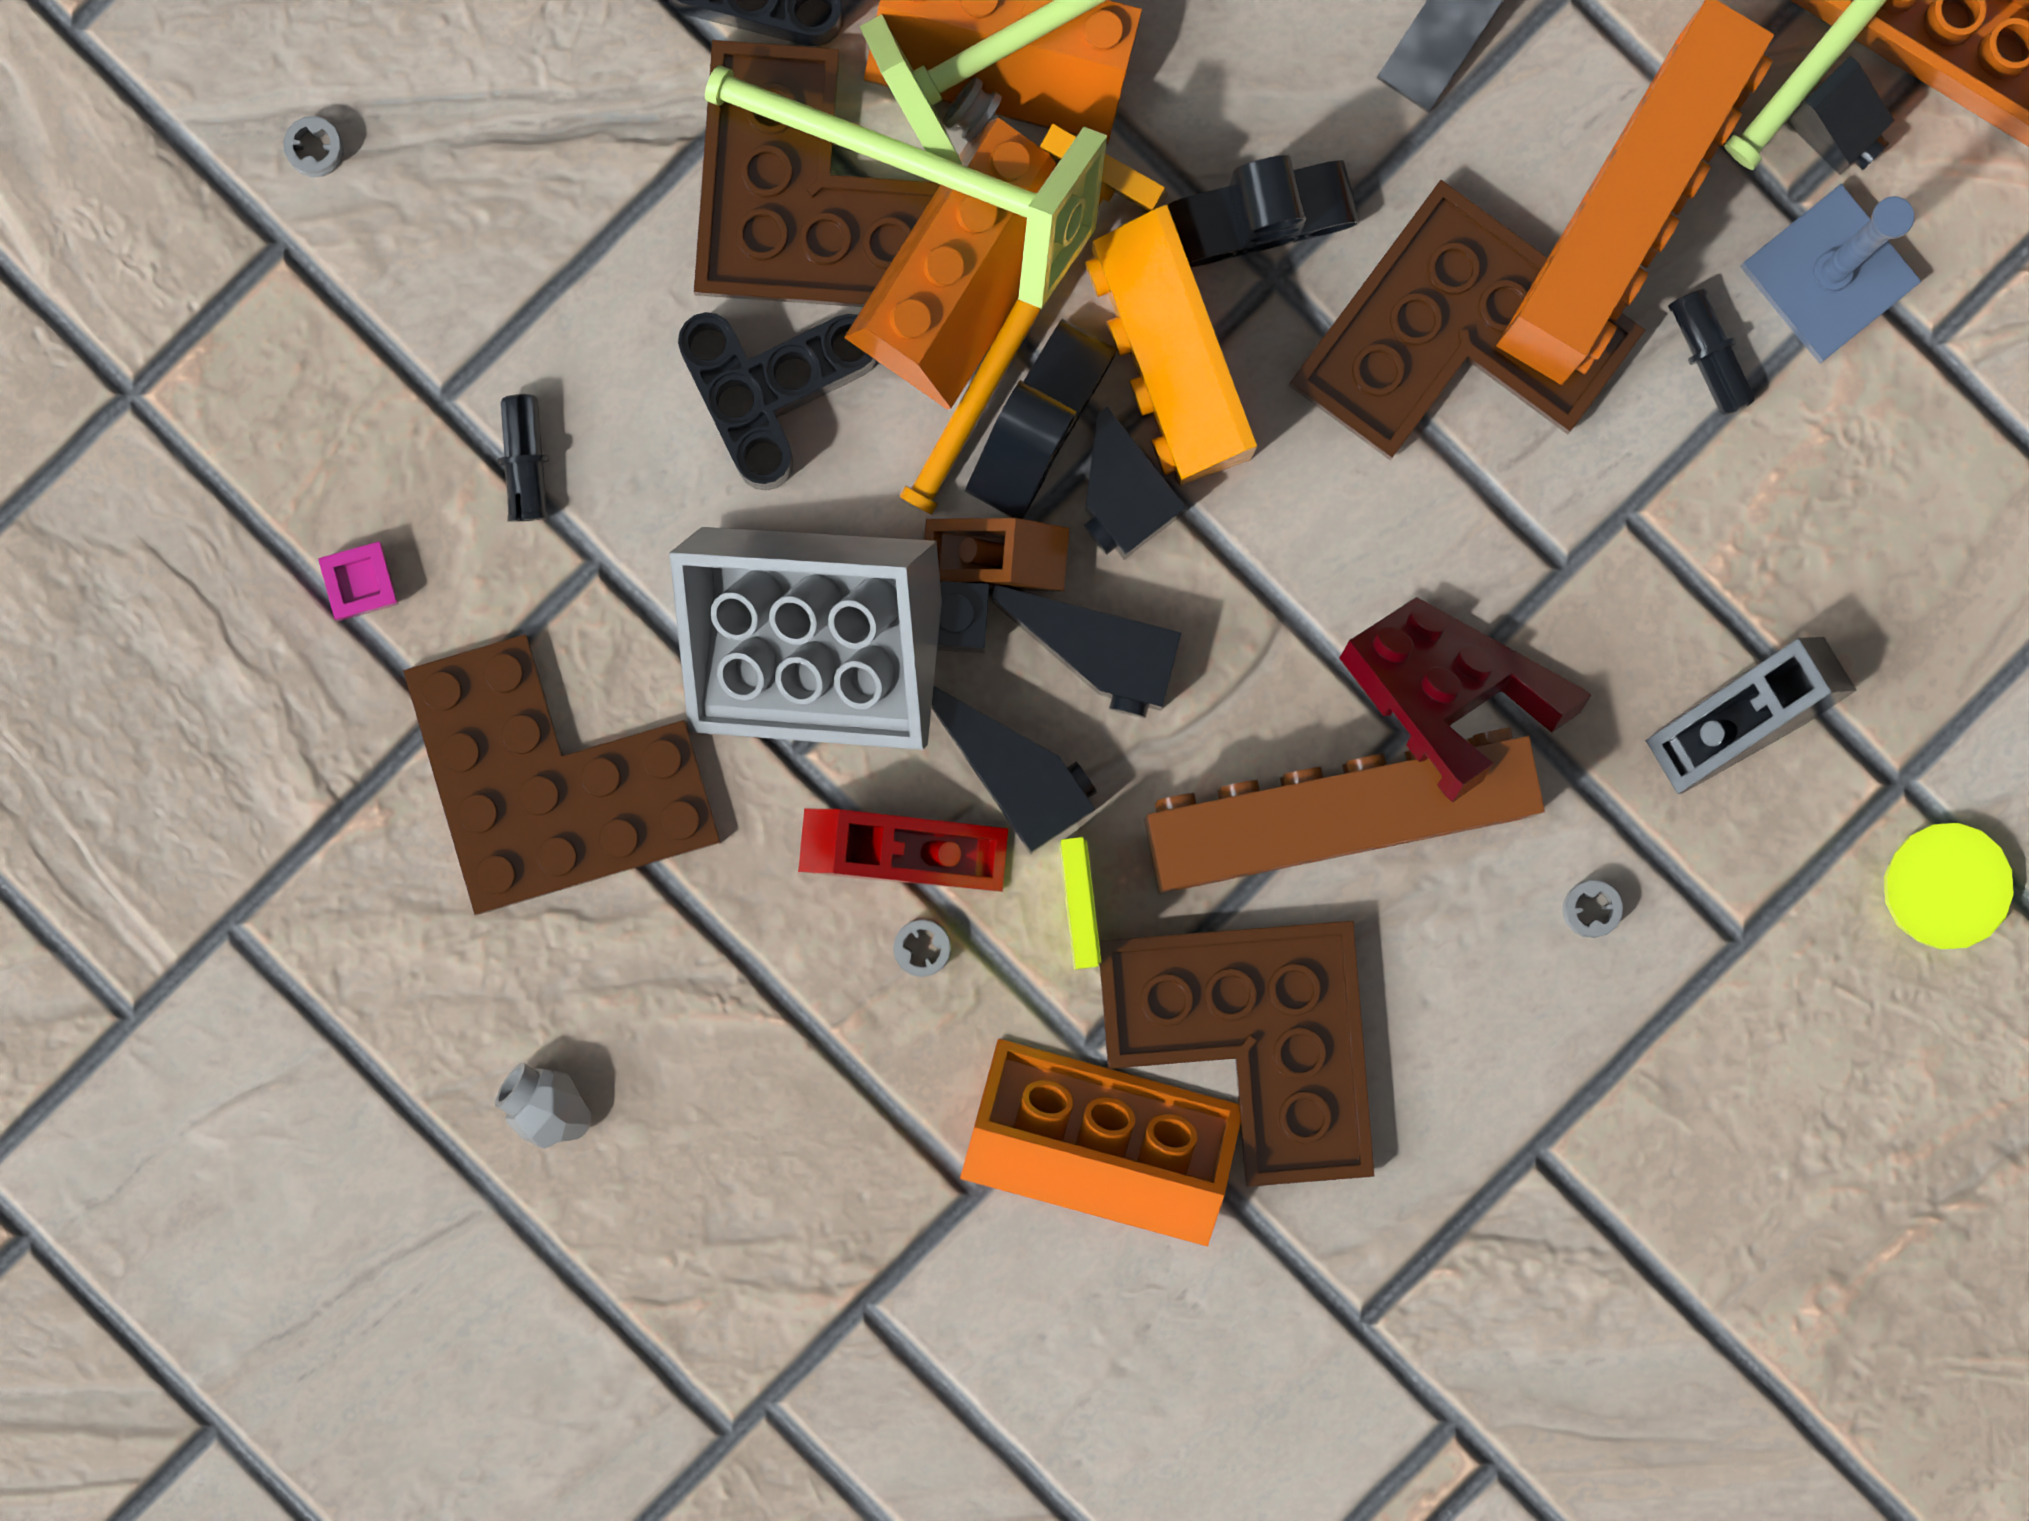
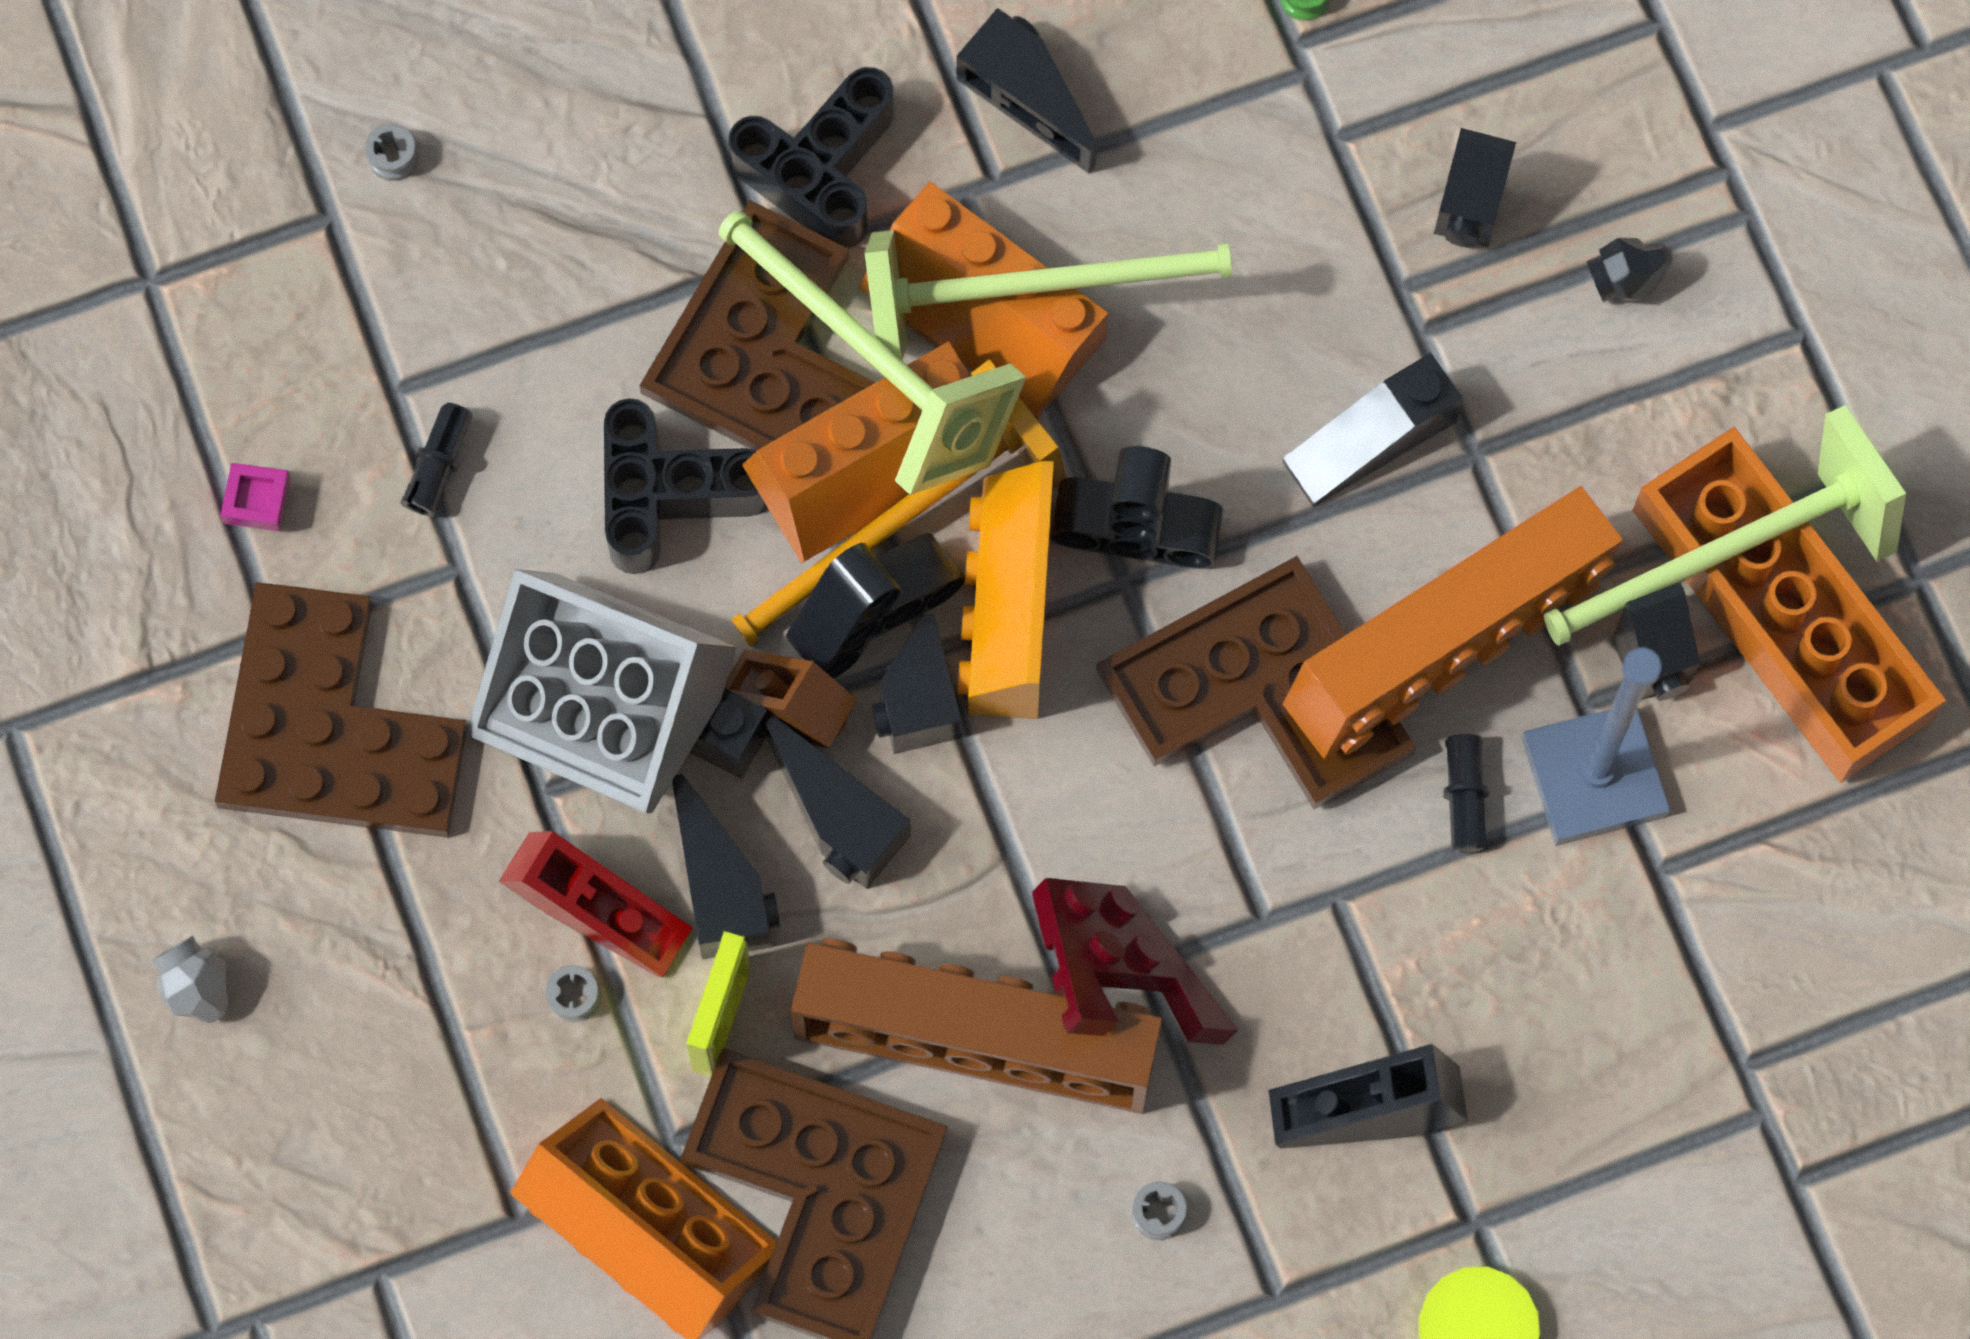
camera: 30 degrees right, 15 degrees down
(972, 109) = (934, 335): light grey bush -> none

